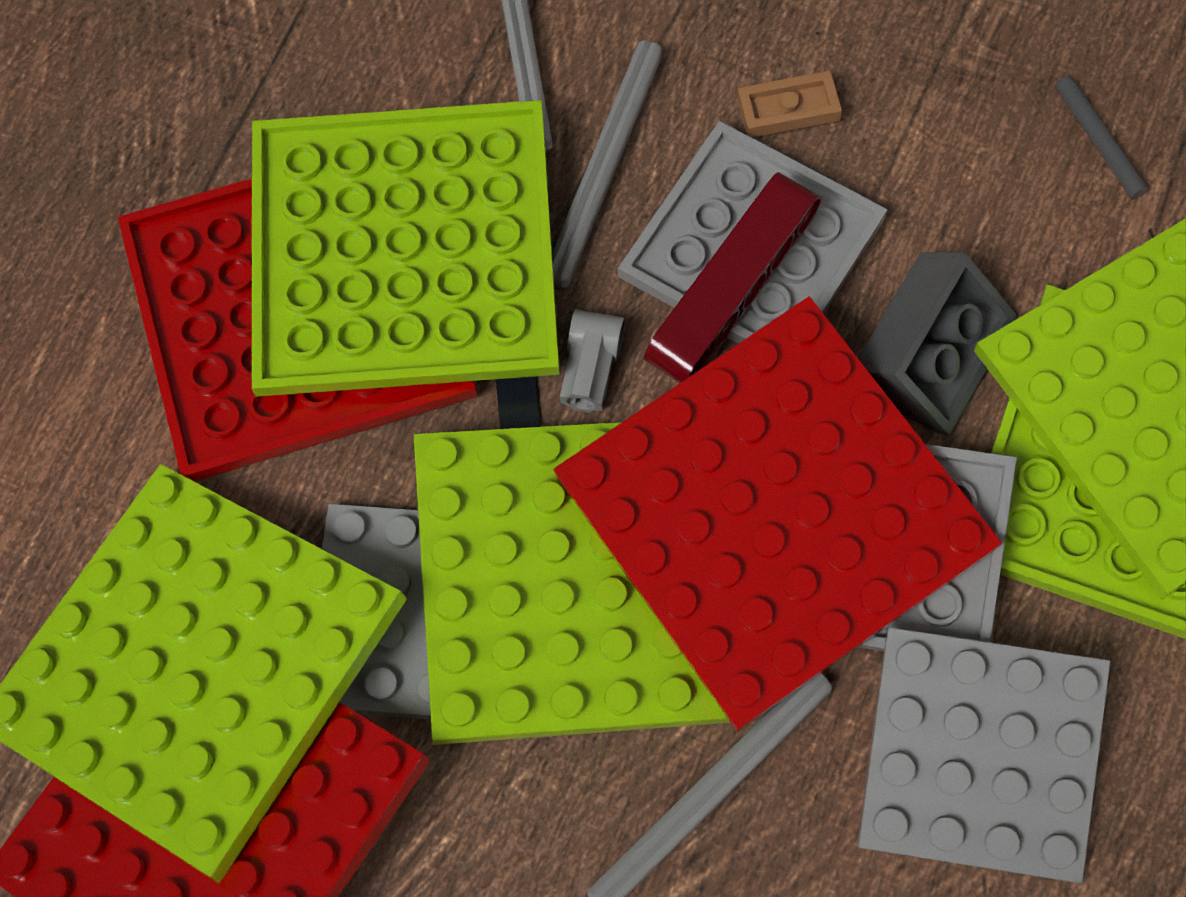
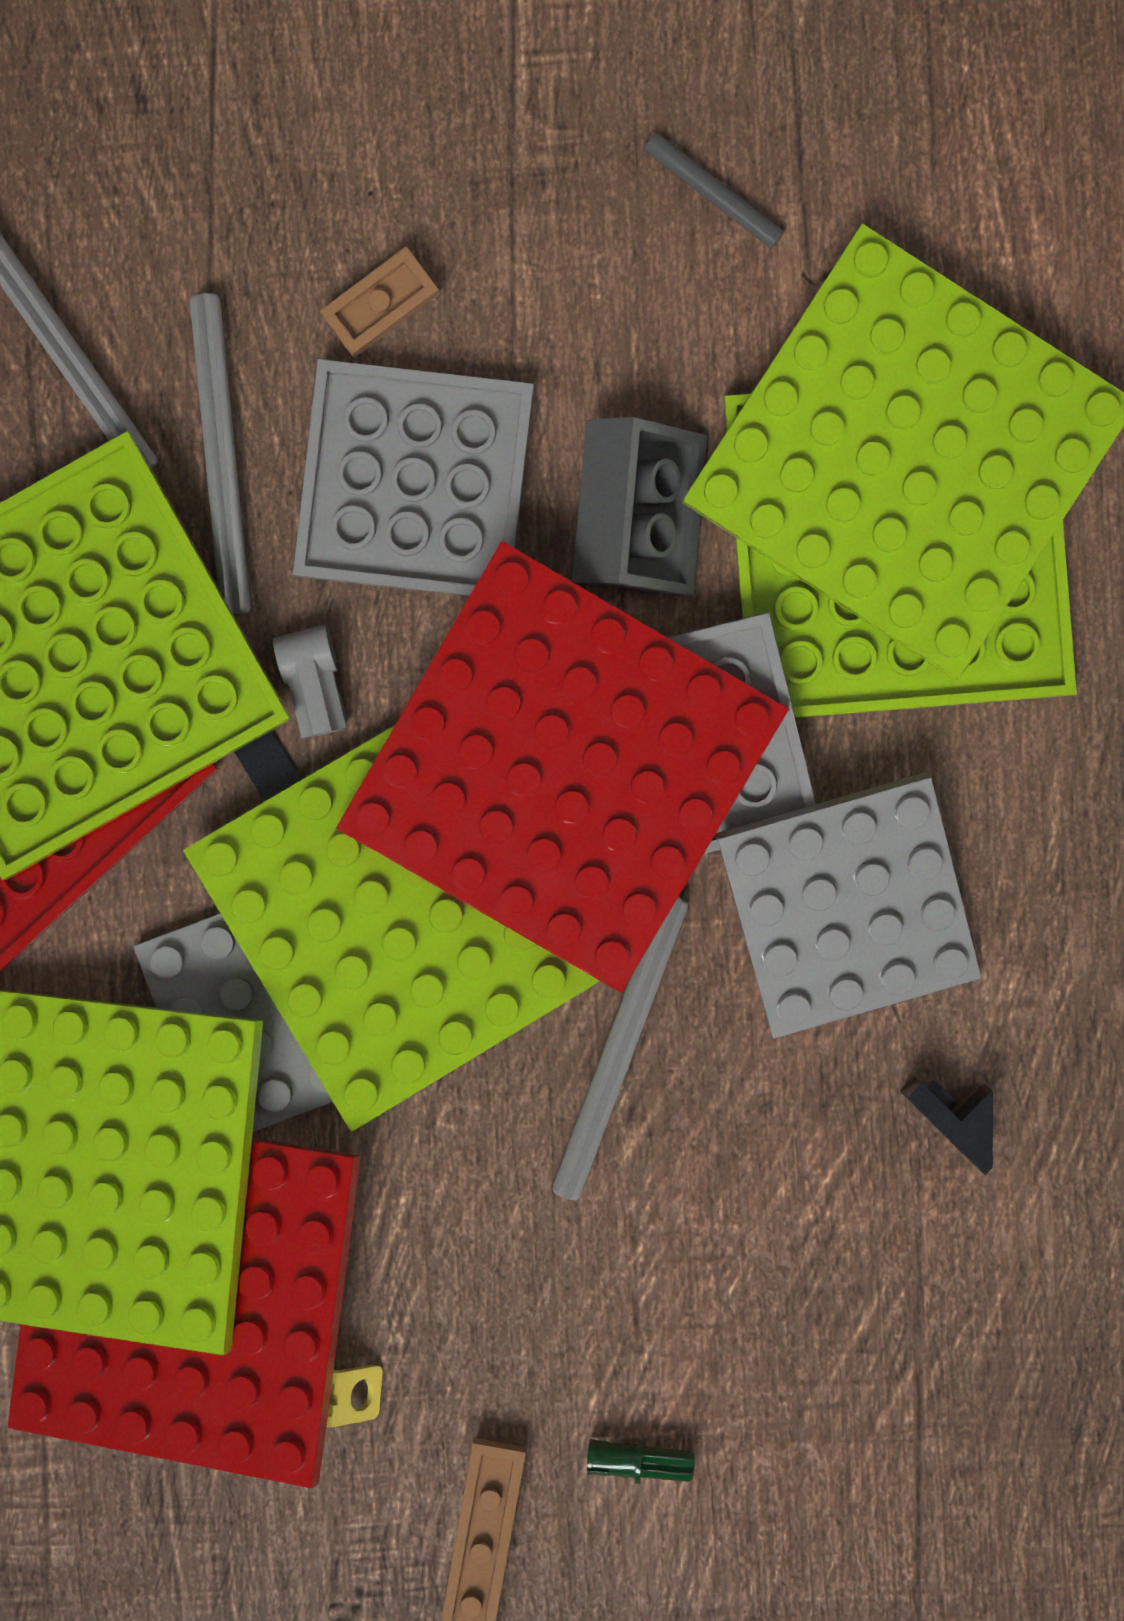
camera: 30 degrees left, 20 degrees up
(732, 278) = (415, 540): dark red beam -> none

